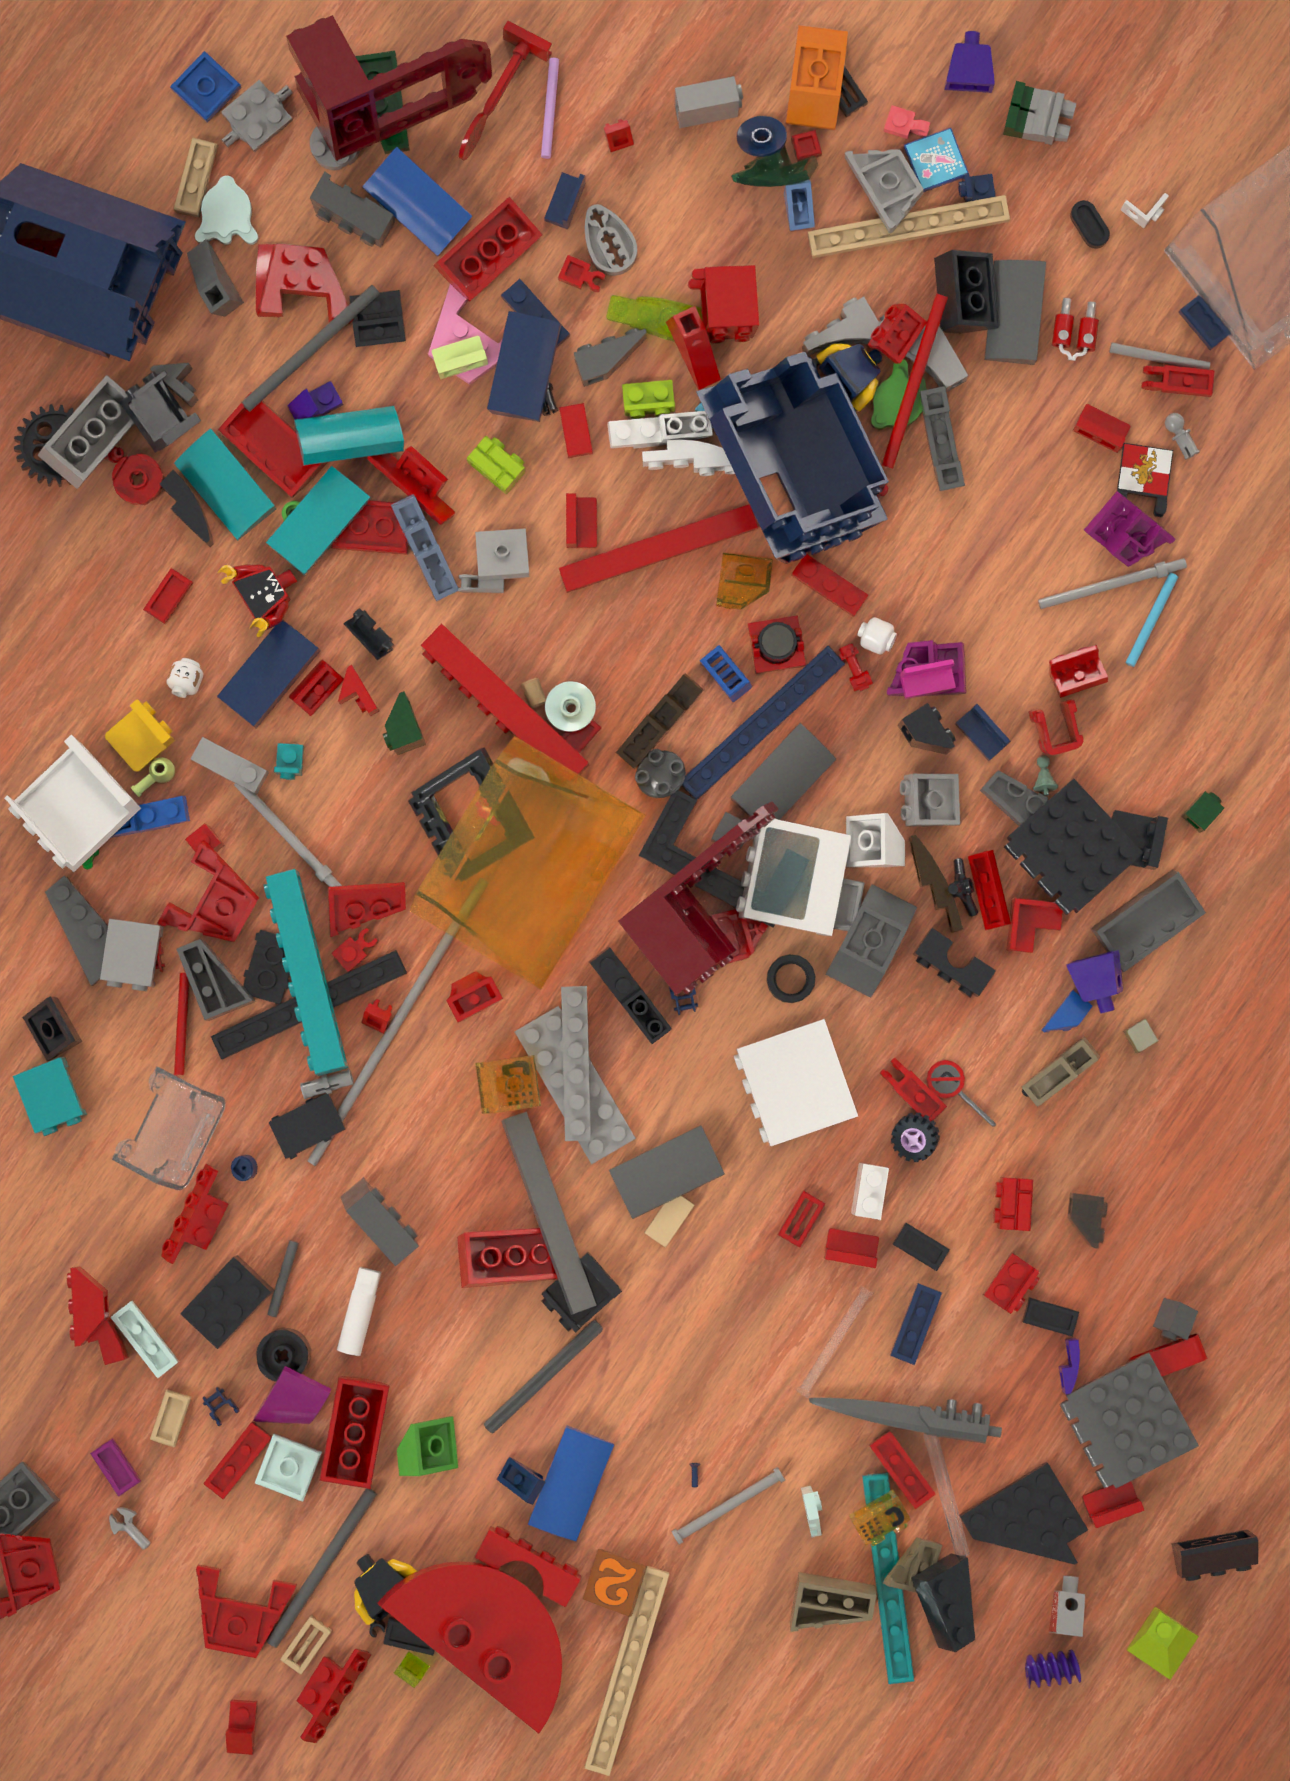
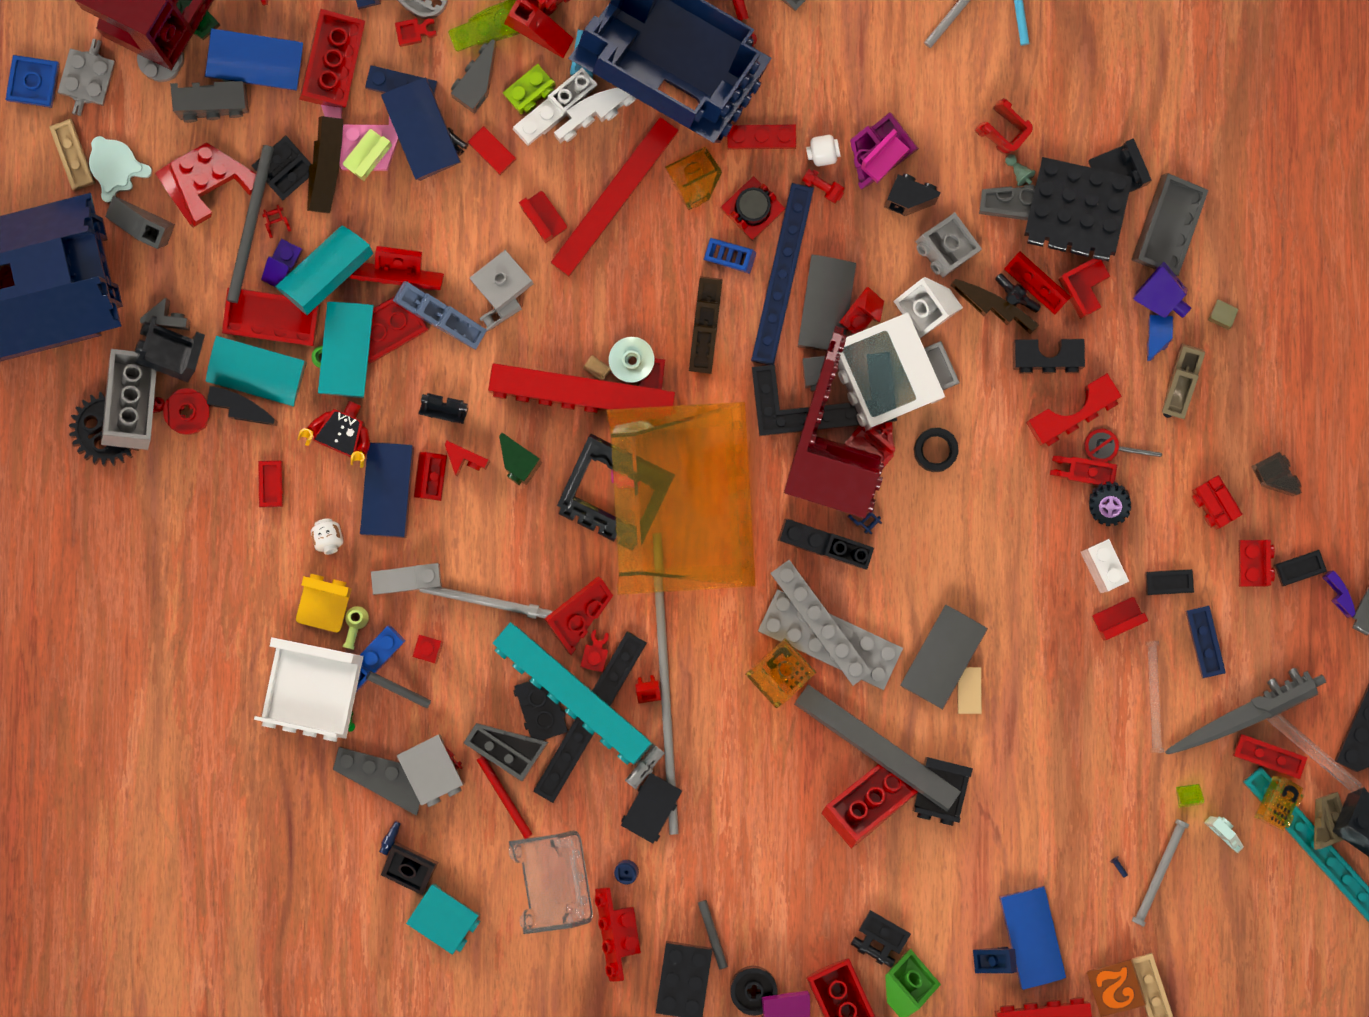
camera: 35 degrees left, 0 degrees up
(53, 990) = (389, 839): none -> dark blue piece
(152, 860) = (400, 690): none -> dark grey bar
(223, 905) = (474, 684): red wing -> none
(289, 761) = (448, 544): teal bracket -> none
(346, 354) = (278, 210): none -> red piece
(359, 1312) = (787, 919): white piece -> none
(379, 1221) = (756, 841): dark grey wedge -> none
(415, 340) = (325, 165): none -> dark brown slope
(439, 1385) = (884, 932): none -> black plate
(472, 995) = (707, 625): red slope -> none
(497, 464) = (450, 216): lime brick -> none
(543, 1376) = (957, 872): dark grey axle -> none
(660, 774) = (733, 364): dark grey dish -> none
(790, 1237) = (1077, 642): red tile -> none
(795, 1083) = (993, 525): white panel -> none
(804, 1454) = (1189, 795): none -> clear neon green slope
(811, 807) = (863, 311): none -> red slope
(830, 1601) = (1285, 890): dark tan wedge -> none
(871, 941) = (977, 380): dark grey slope -> none
(975, 1032) = (1049, 425): none -> red arch
(983, 732) = (951, 168): dark blue panel -> none
(1077, 671) = (990, 75): red bracket -> none
(1203, 811) = (1154, 116): dark green brick -> none

